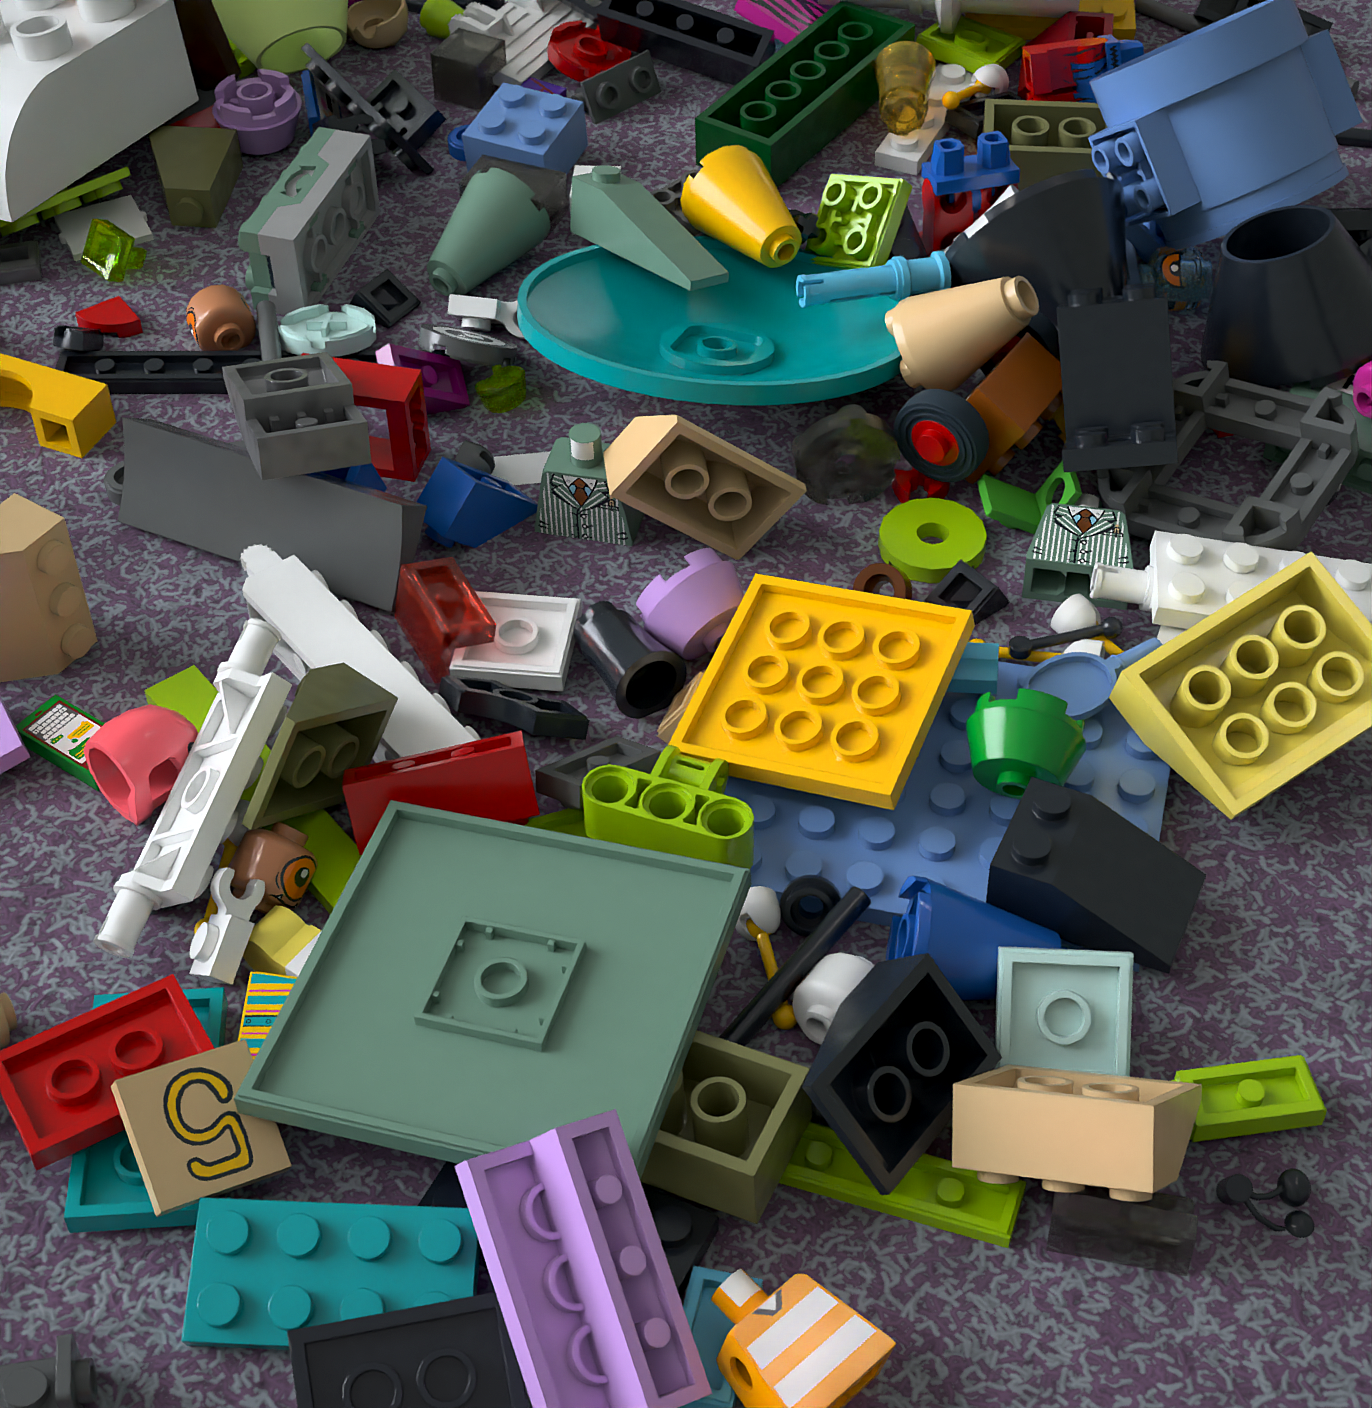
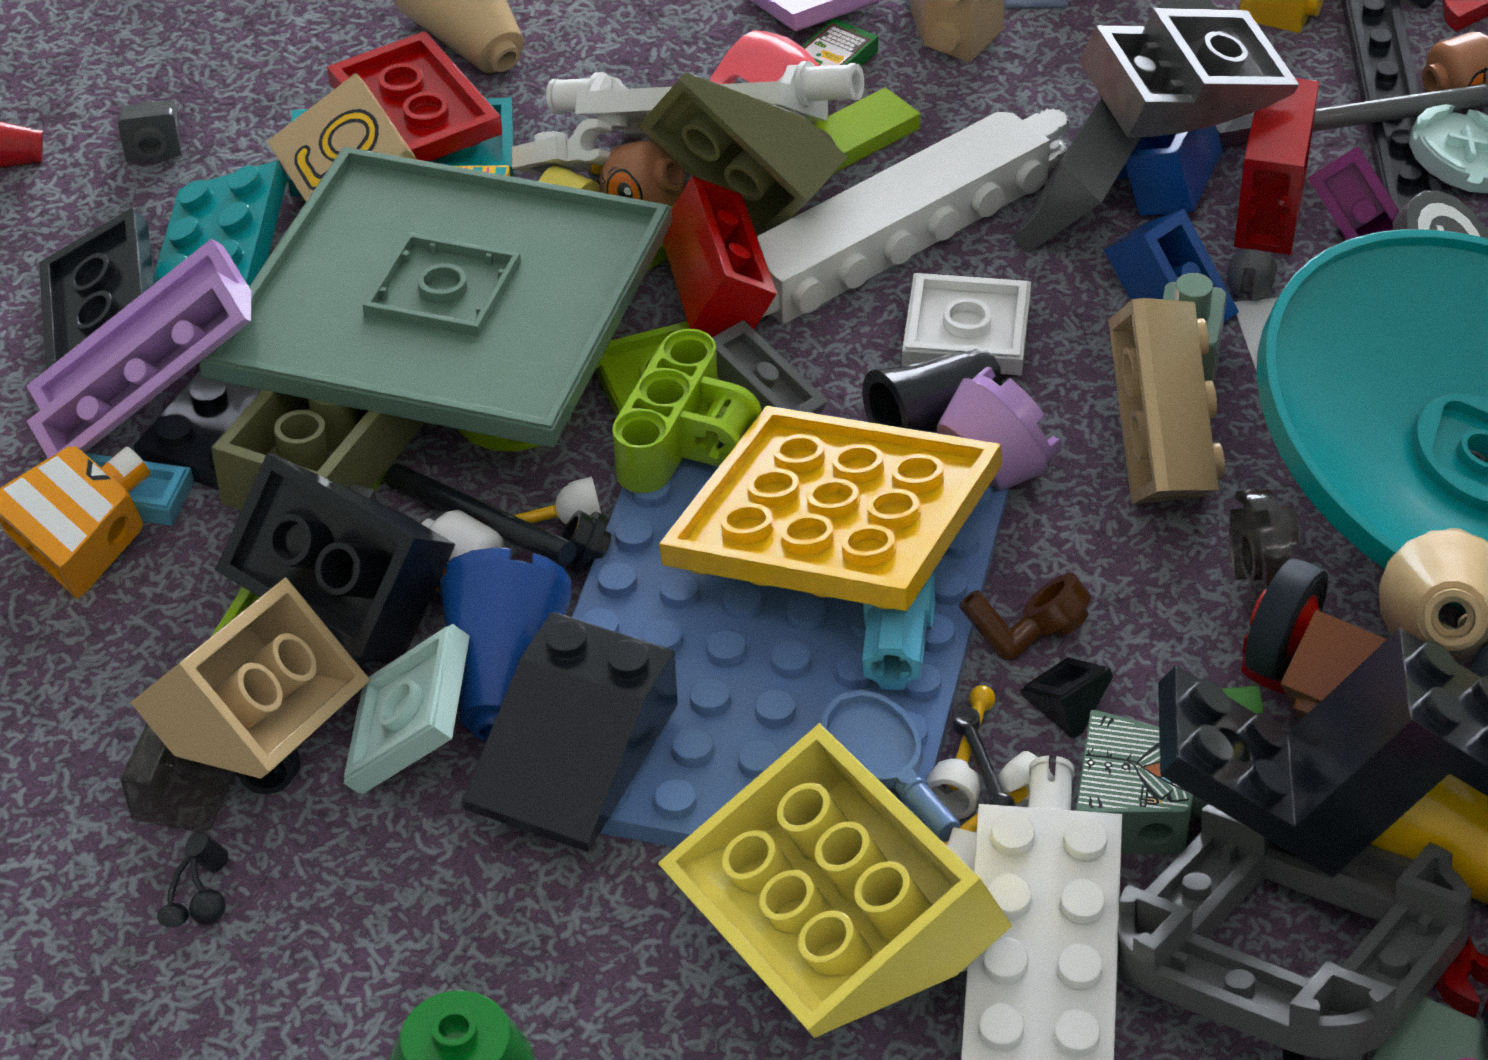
camera: 90 degrees right, 0 degrees up
(440, 613) = (988, 251): clear red panel -> none
(527, 711) = (849, 334): black tile -> none
(909, 522) = (1161, 635): lime tile -> none
(1023, 740) = (741, 664): green cone -> none
(1254, 1098) = (306, 860): lime hinge -> none

